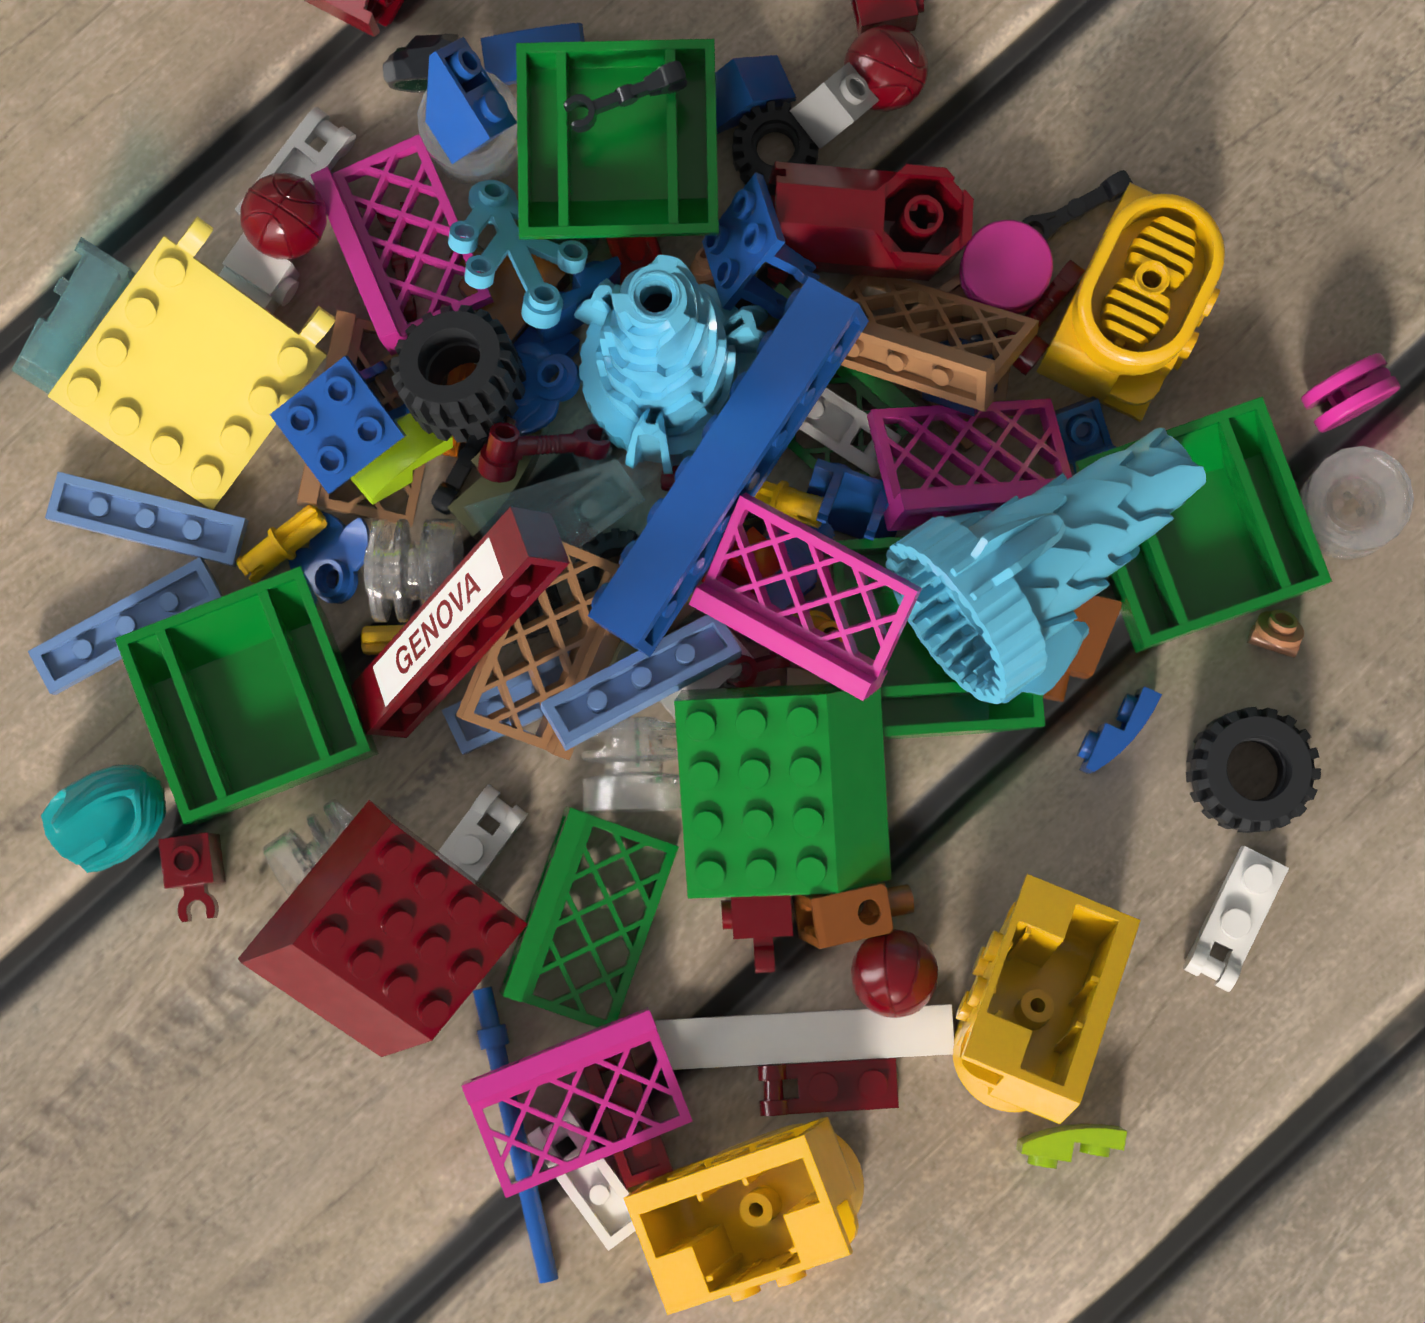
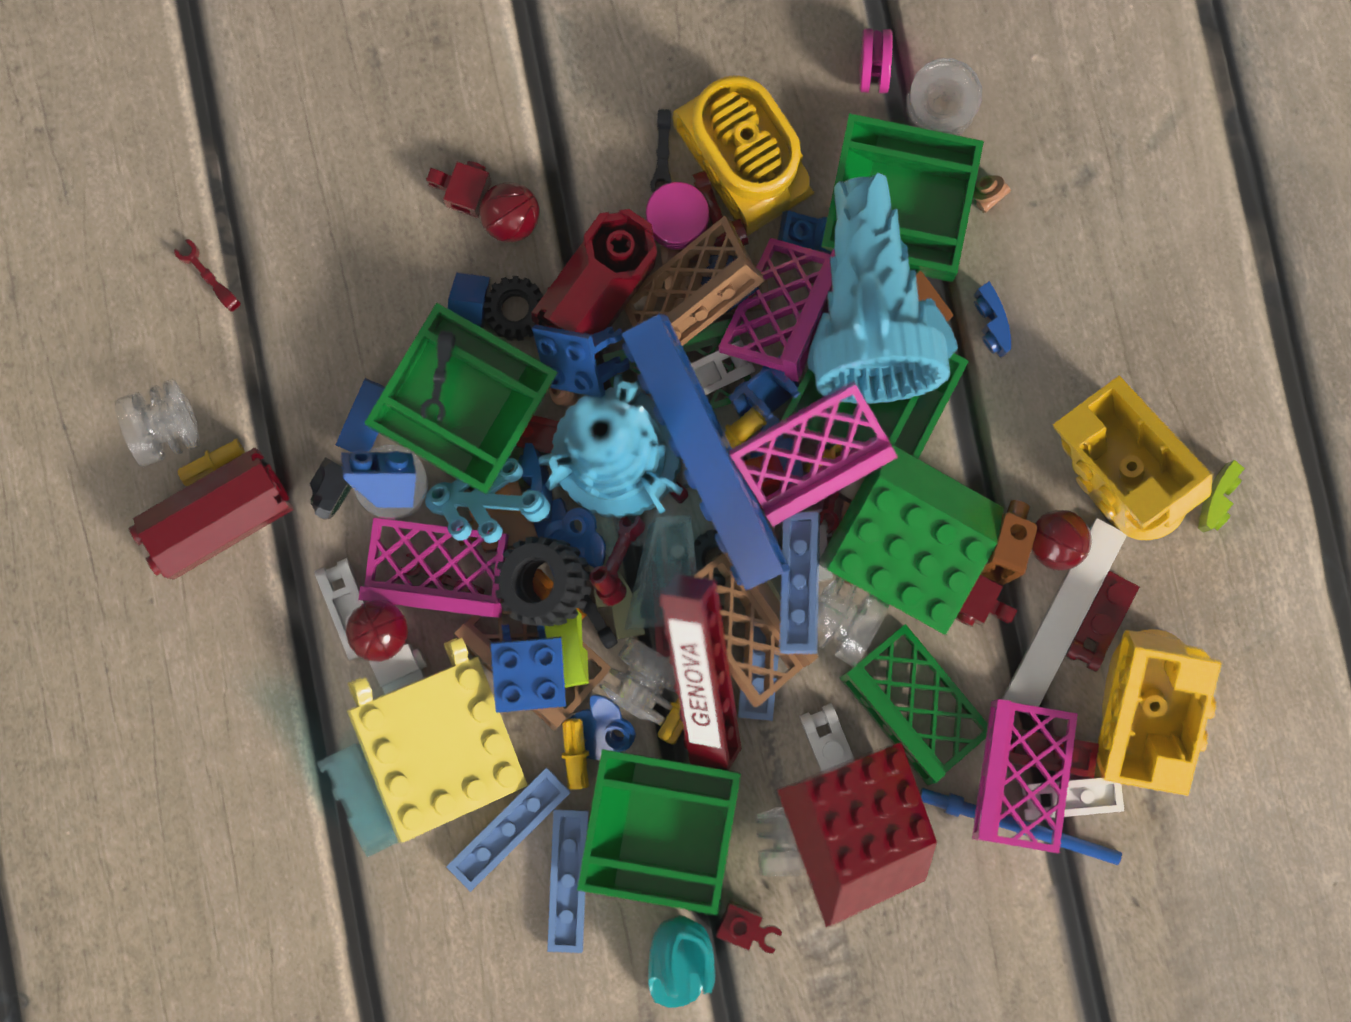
camera: 65 degrees left, 0 degrees up
(834, 105) = (515, 256): light grey brick -> none
(1236, 916) = (1143, 319): white plate -> none
(1293, 763) = (1079, 233): black tyre -> none

